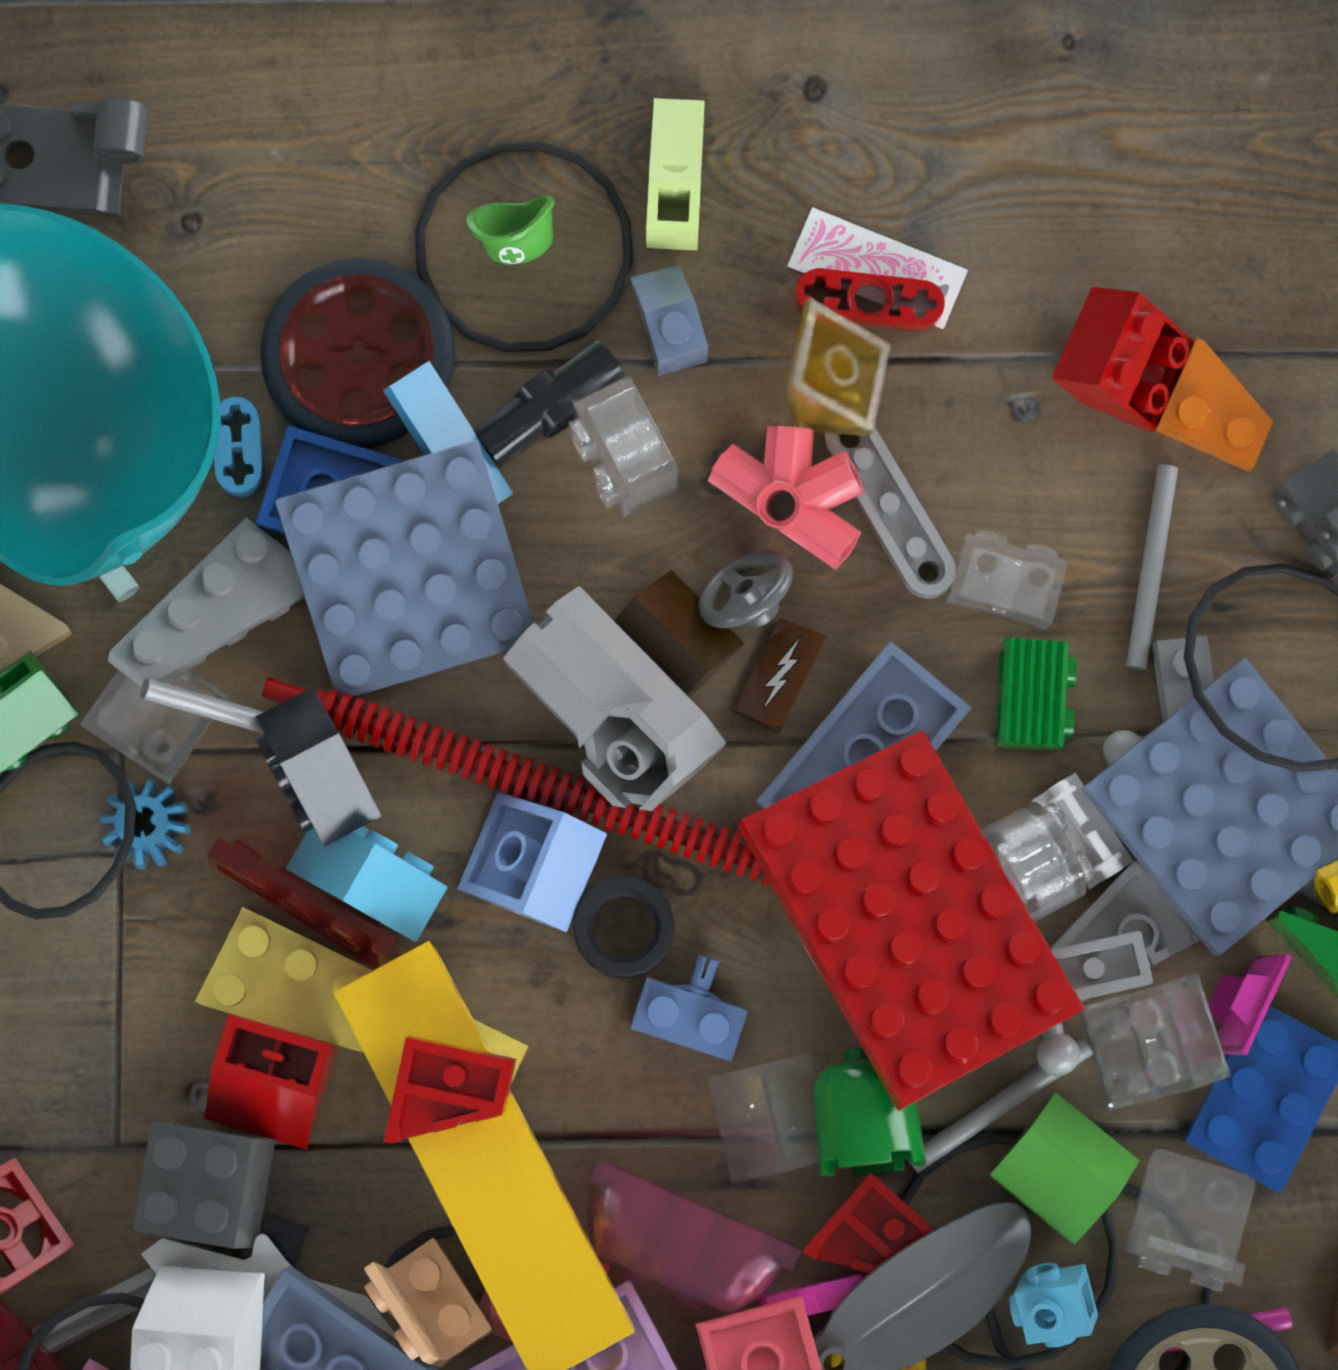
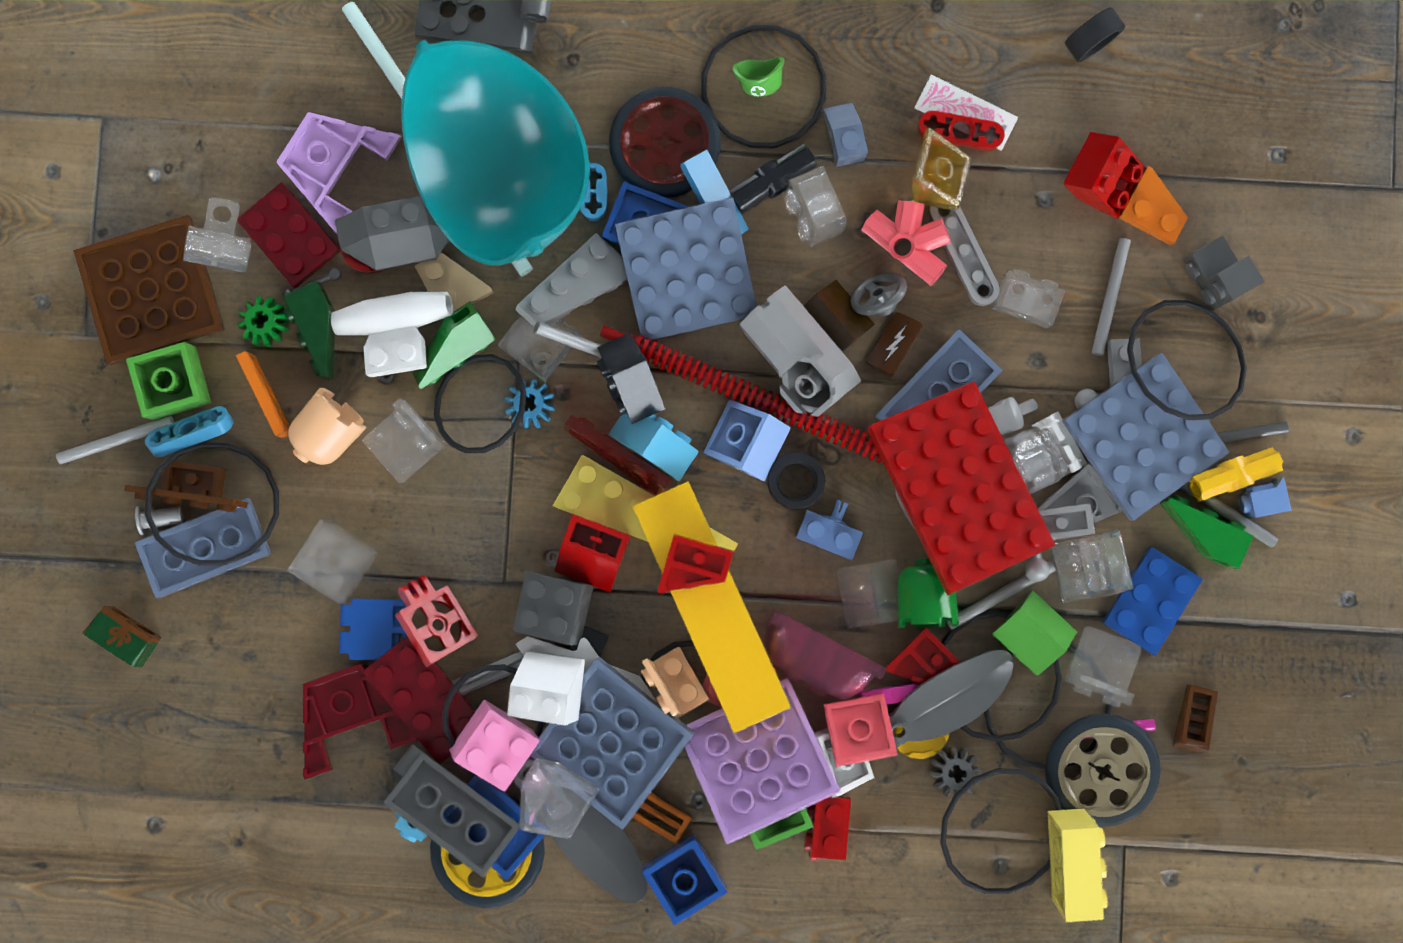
camera: 10 degrees right, 5 degrees up
(675, 174) = (854, 50): yellowish green slope -> none
(989, 784) = (1009, 414): none -> light grey piece
(1034, 694) = (1038, 365): green brick -> none
(1054, 1304) = (1023, 708): medium azure brick -> none
(1085, 121) = (1094, 34): none -> black tyre
(1244, 1001) = (1146, 547): dark pink piece -> none

